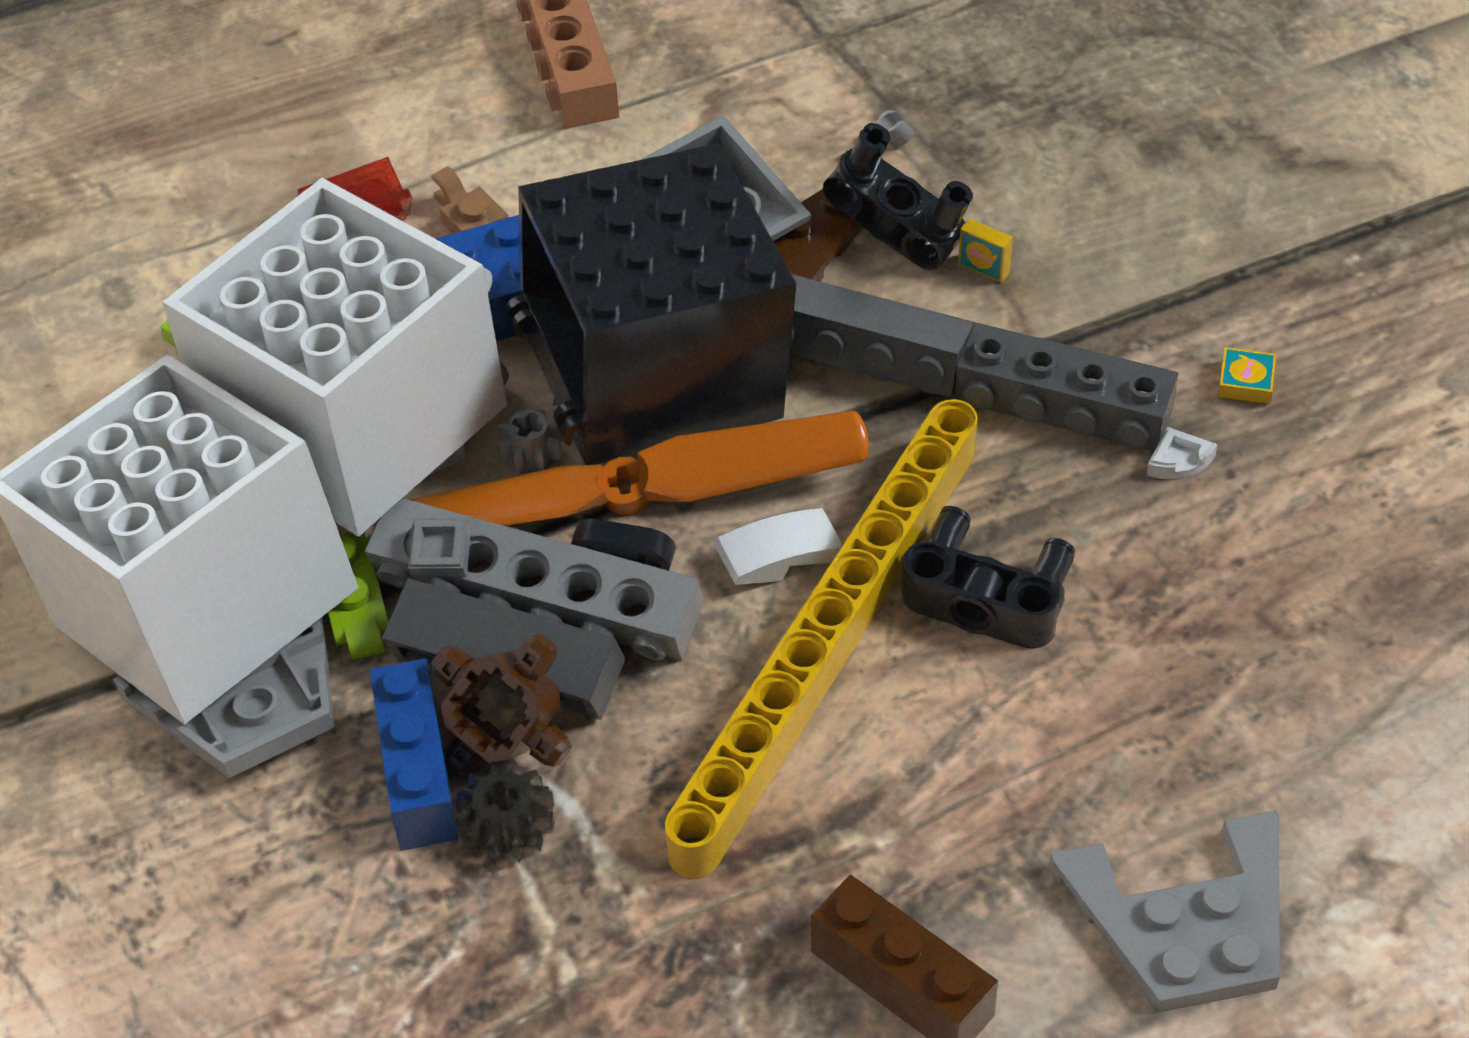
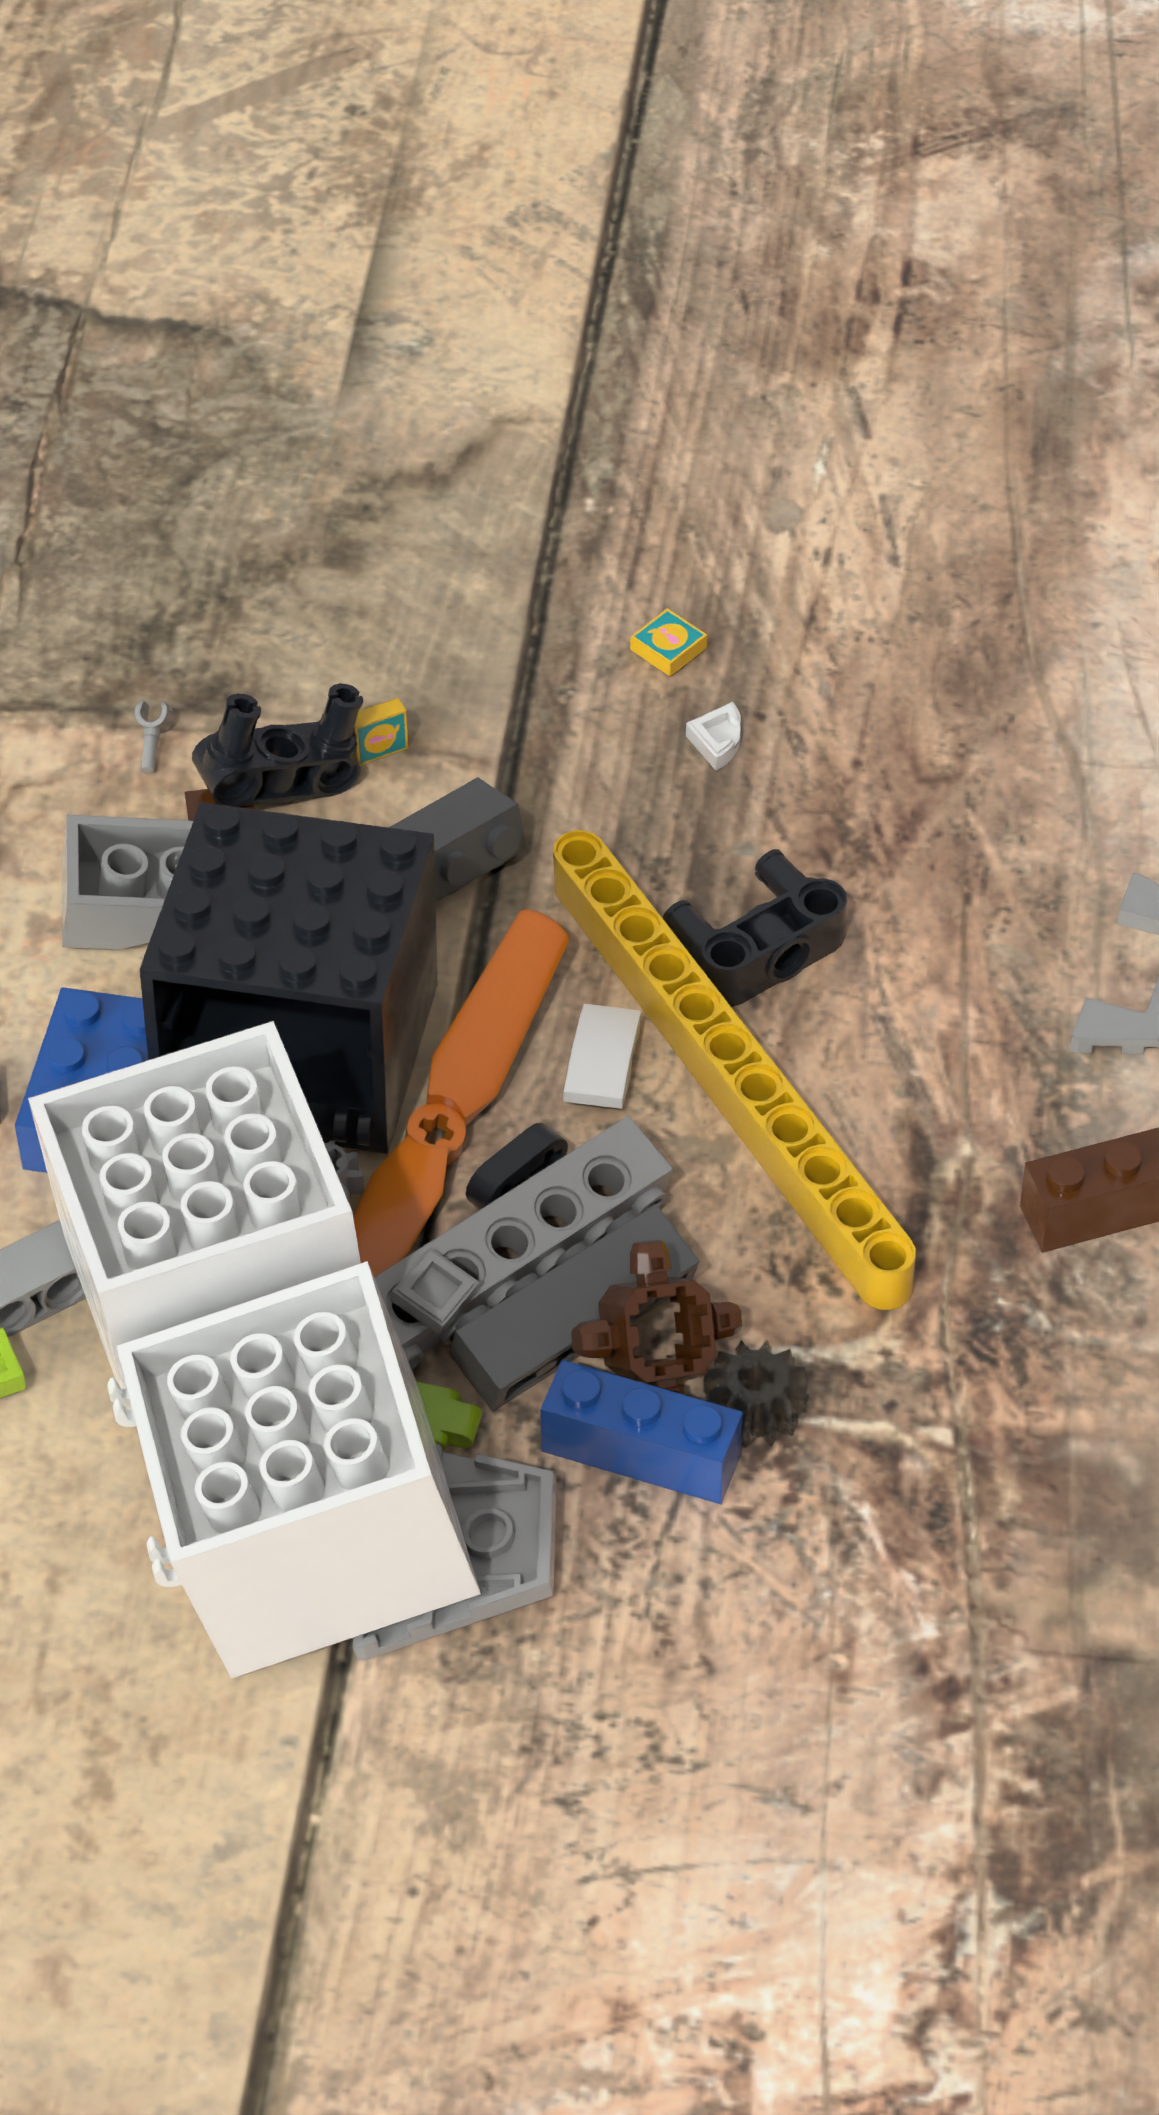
camera: 60 degrees left, 0 degrees up
(1062, 390) = (597, 758): dark grey brick -> none

